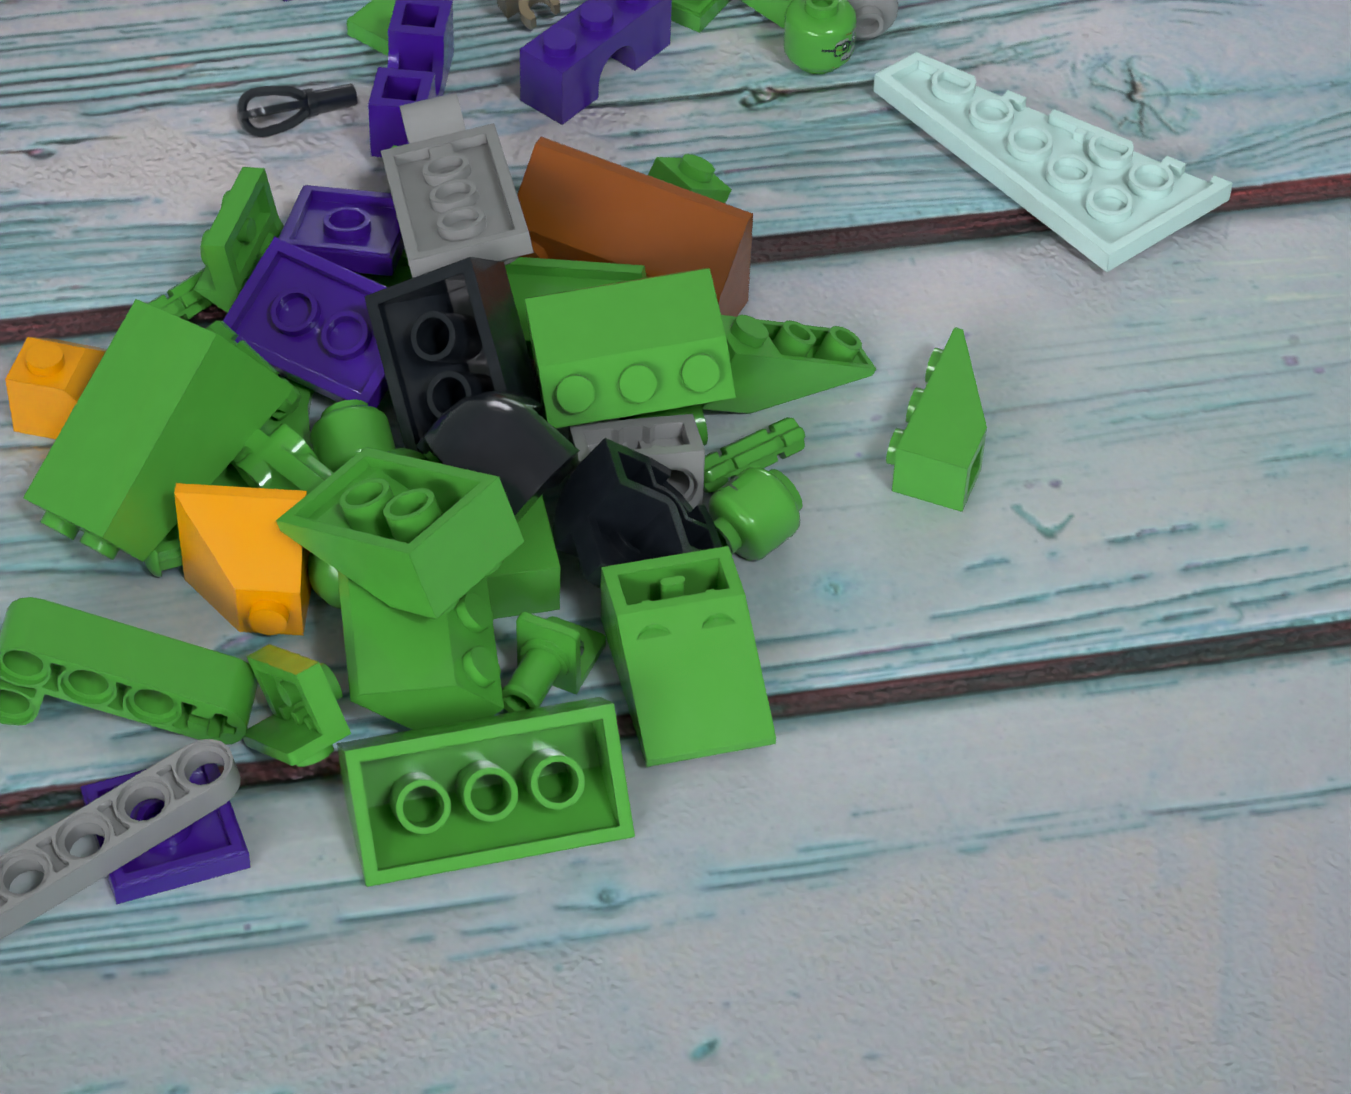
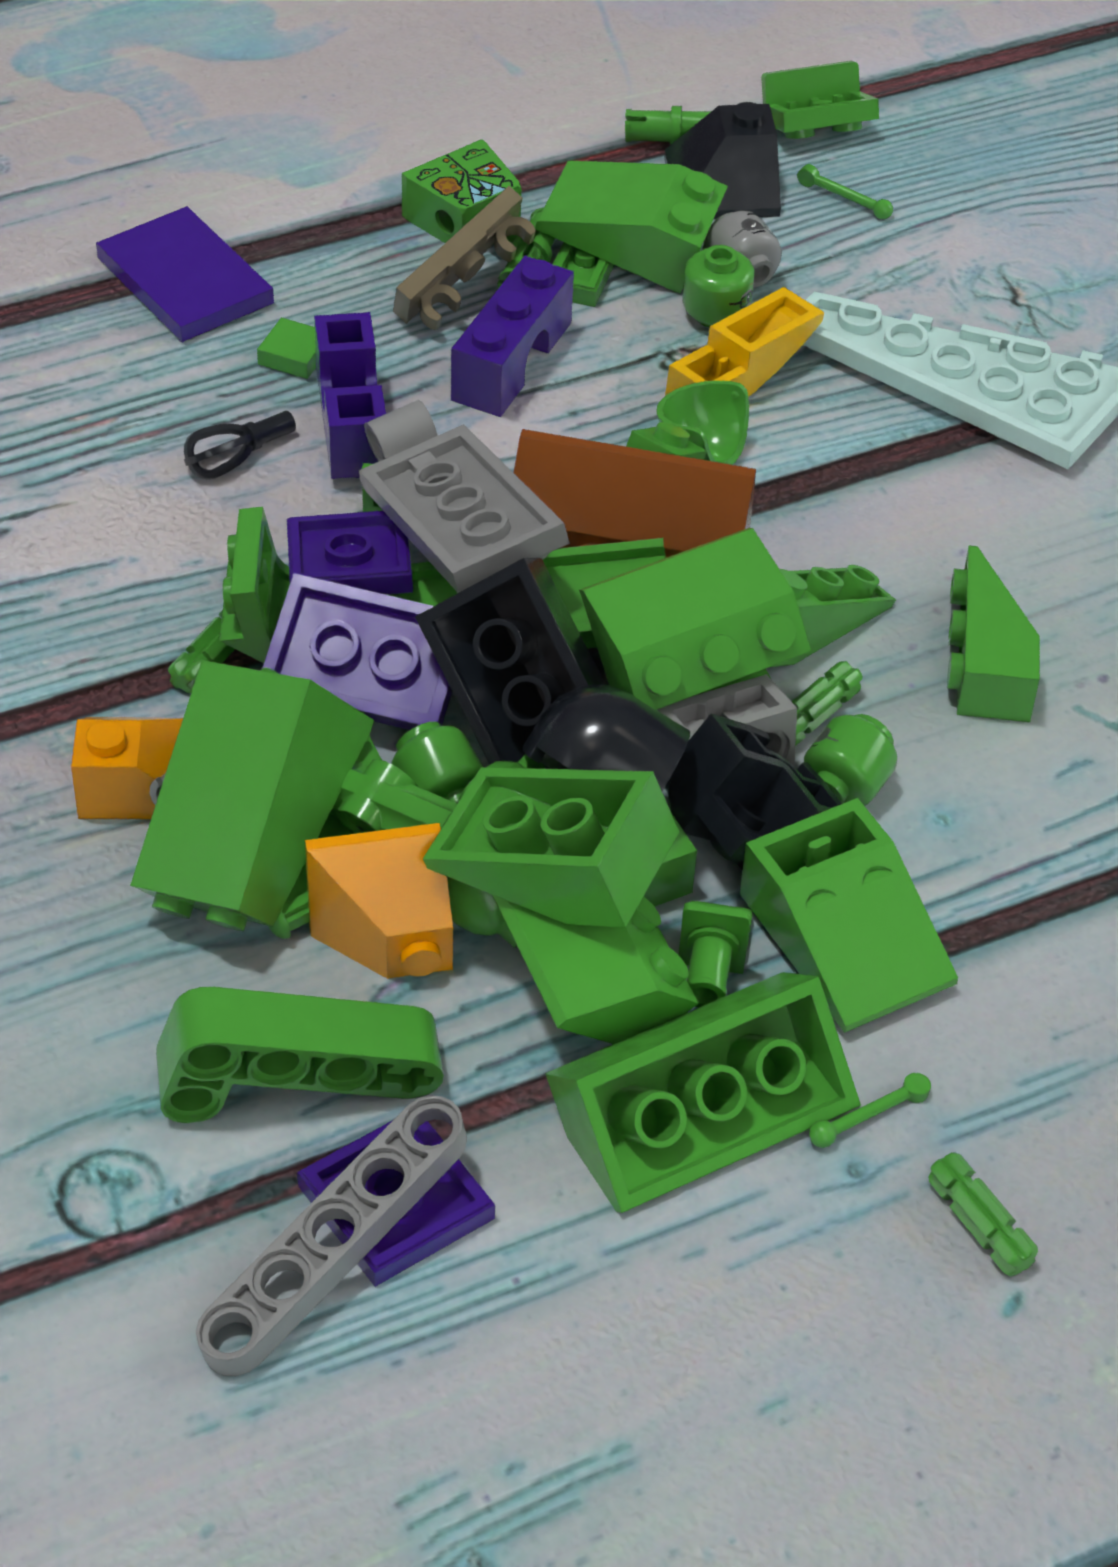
camera: 15 degrees left, 0 degrees up
(302, 704) = (500, 1045): bright green bracket -> none
(694, 833) = (914, 1089): none -> bright green hinge
(706, 959) = (983, 1214): none -> bright green axle
(752, 161) = (712, 415): none -> bright green helmet
(815, 103) = (750, 343): none -> yellow slope

